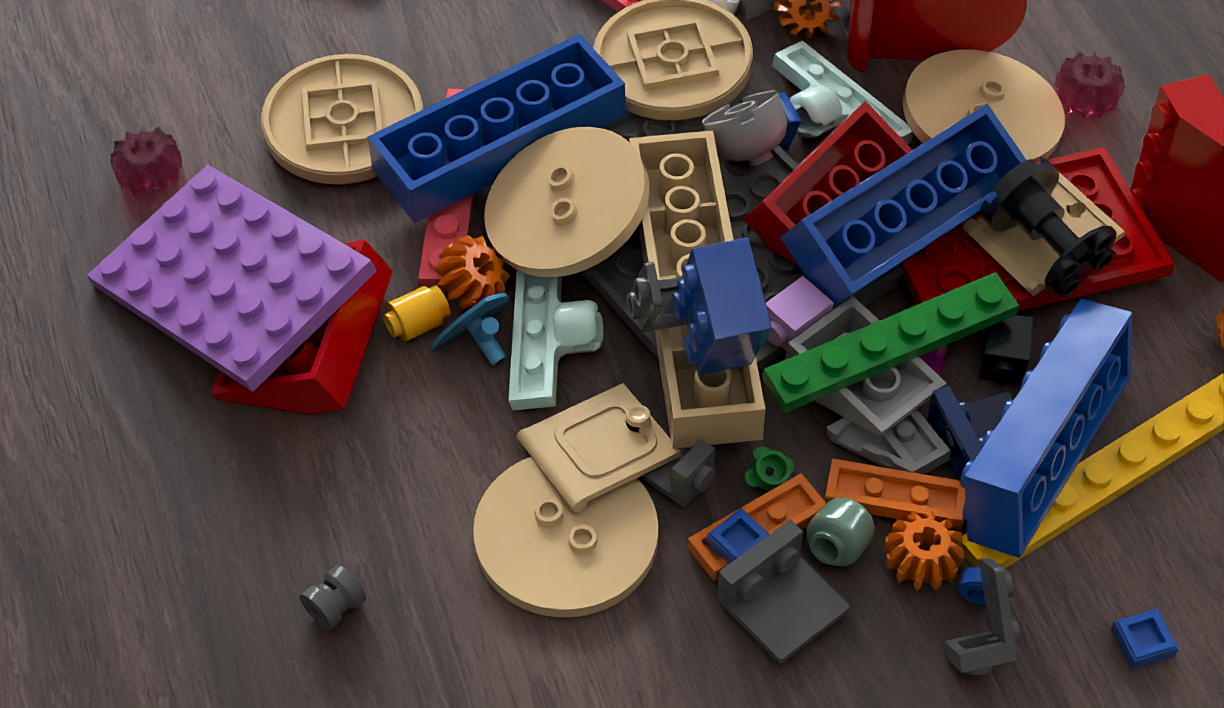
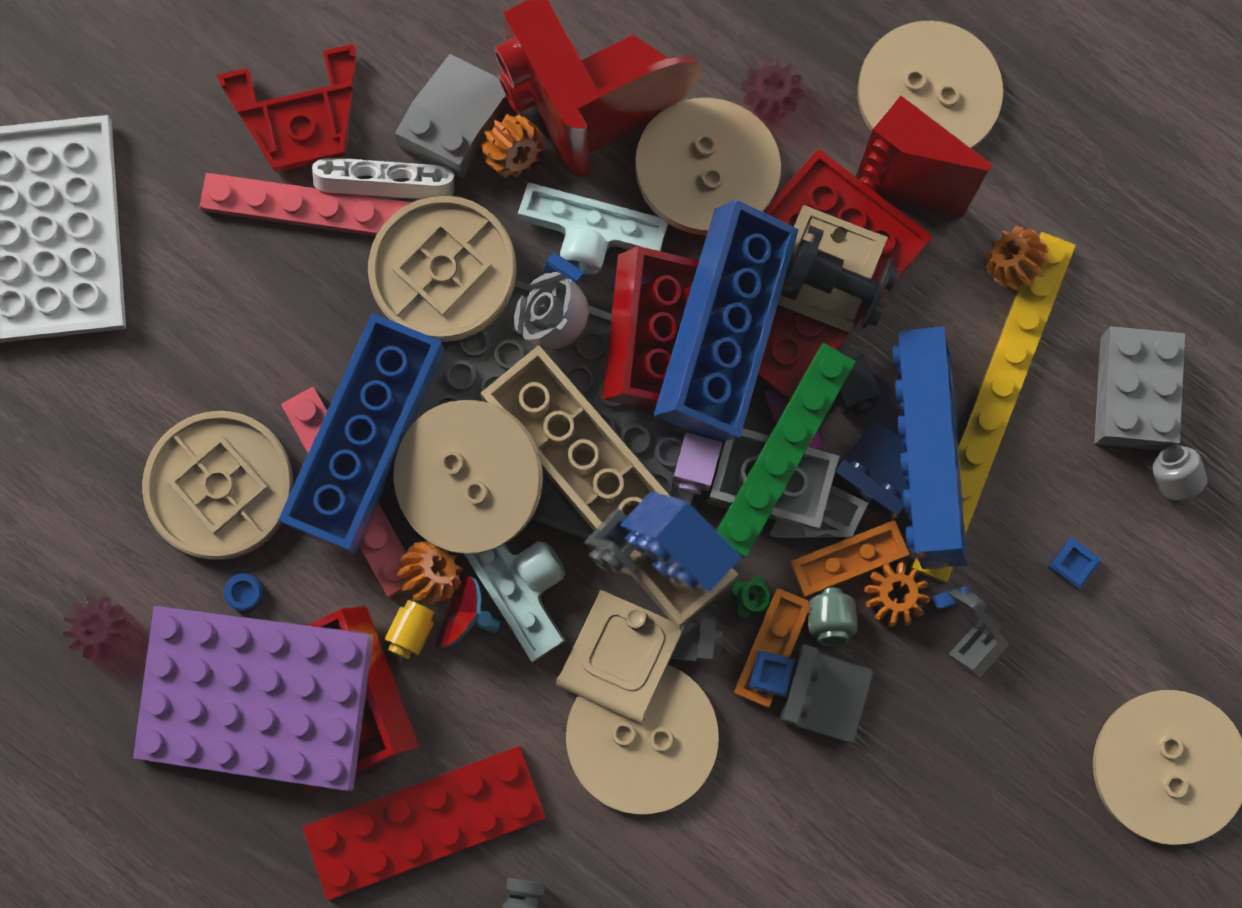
camera: 35 degrees left, 25 degrees up
(297, 482) = (423, 823): none -> red plate
(299, 204) = (243, 592): none -> blue tile

